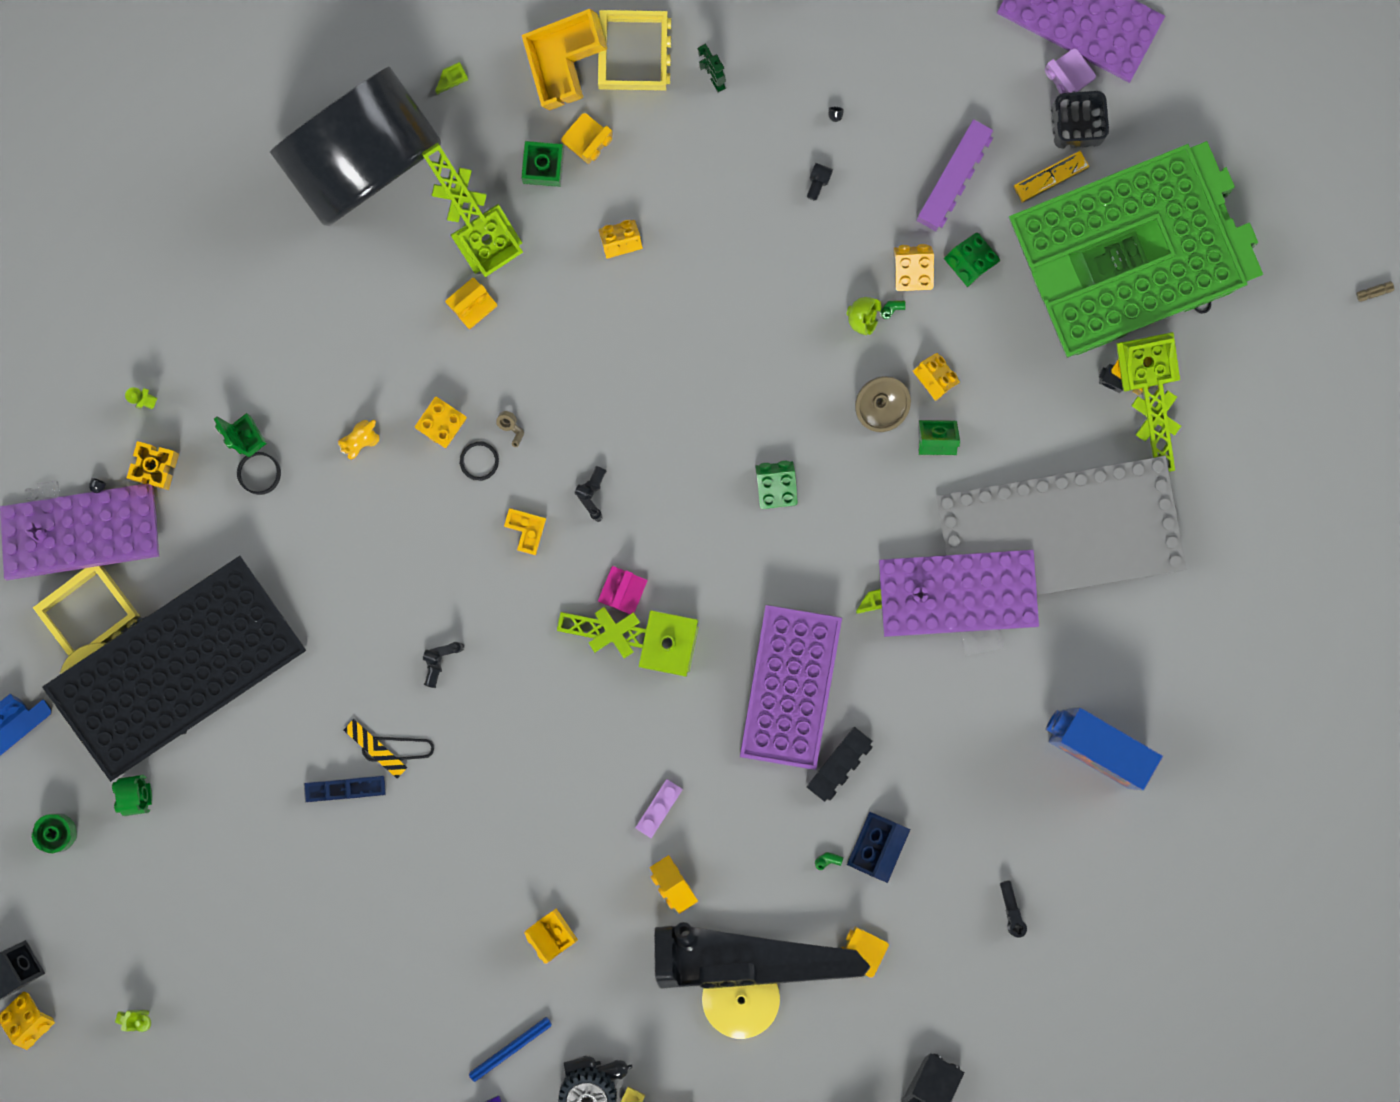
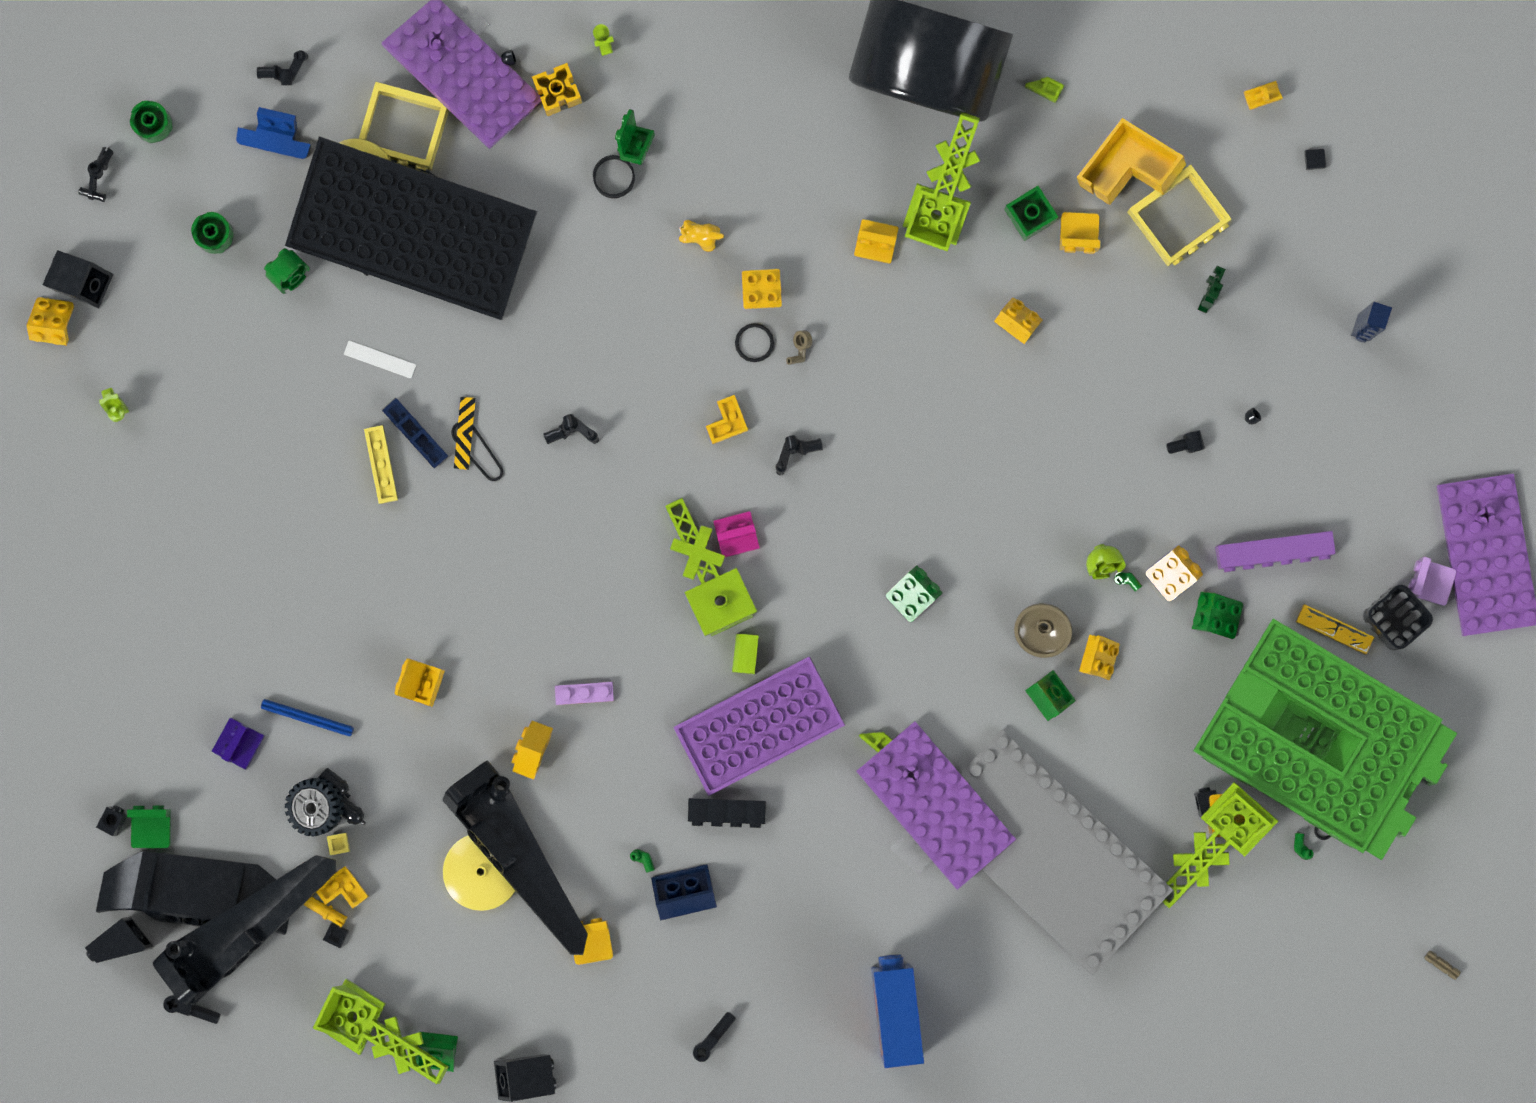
camera: 55 degrees right, 0 degrees up
(262, 773) = (379, 359): none -> white sticker
(349, 835) = (381, 464): none -> light yellow plate
(724, 655) = (745, 654): none -> lime brick
(1203, 332) = (1300, 848): none -> green arm

